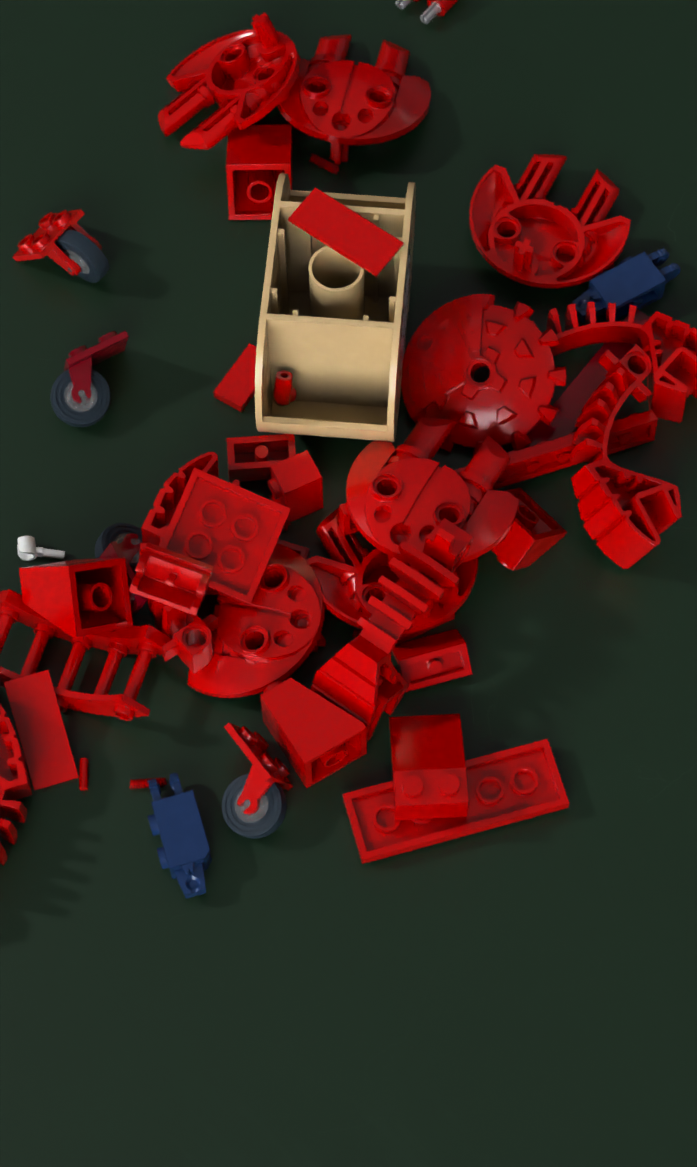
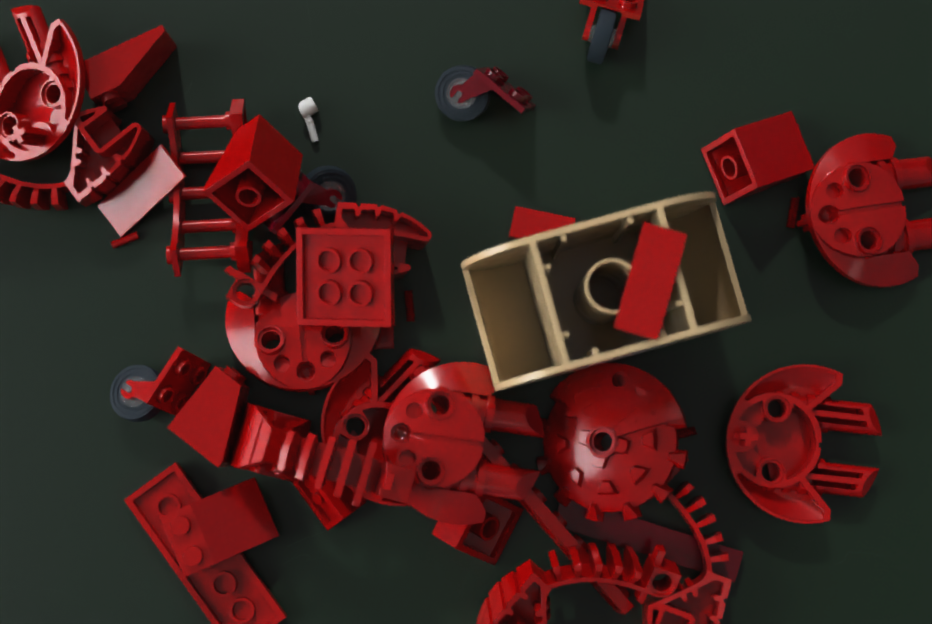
camera: 65 degrees right, 20 degrees up
(141, 782) = (130, 285): red leg -> none
(171, 579) = (281, 251): red hinge -> none
(182, 836) = (94, 342): dark blue hinge -> none
(241, 71) = (856, 101): red piece -> none
(252, 456) = (447, 263): red brick -> none
(283, 392) = (511, 273): red arm -> none
(297, 485) = (438, 316): red brick -> none
(632, 282) = (759, 537): dark blue hinge -> none

